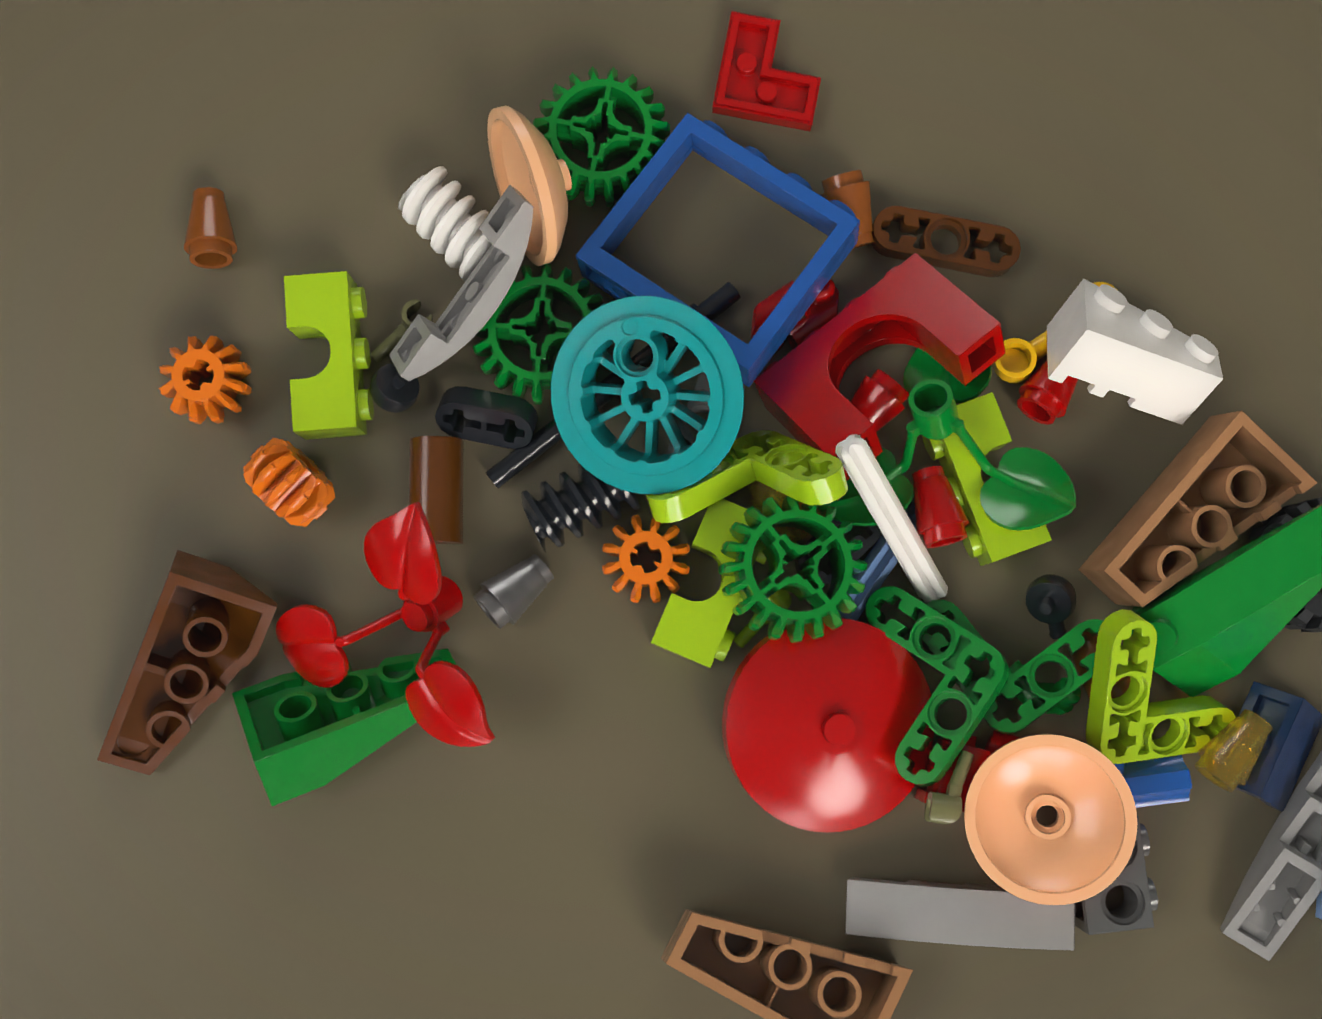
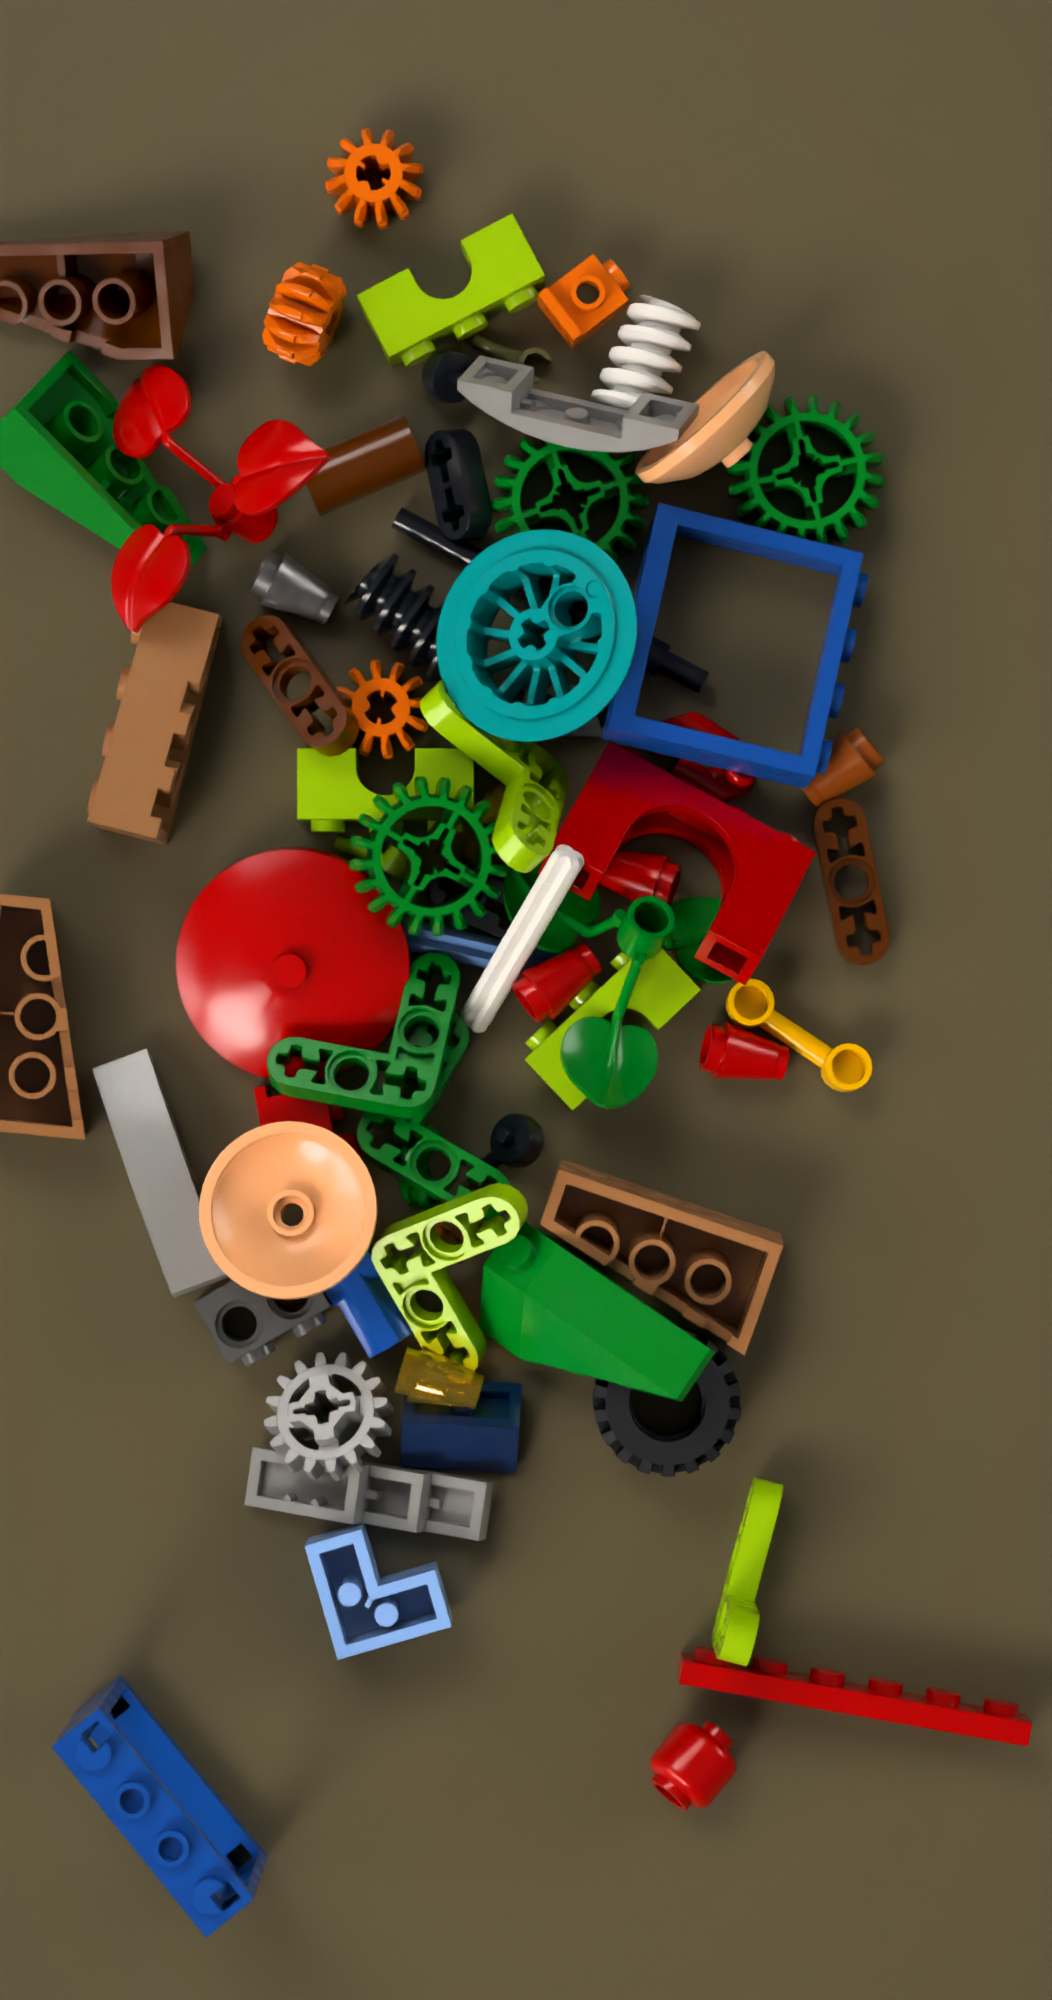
camera: 70 degrees right, 5 degrees up
(209, 230) = (532, 110): dark orange cone -> none
(386, 269) = (579, 320): none -> orange brick
(579, 757) = (155, 723): none -> medium nougat wedge
(613, 602) = (320, 695): none -> reddish brown beam
(755, 90) = (936, 604): red tile -> none
(947, 807) = (256, 1106): olive hand -> none
(1130, 353) = (798, 1113): white wedge -> none
(1253, 863) = (350, 1426): none -> light grey gear

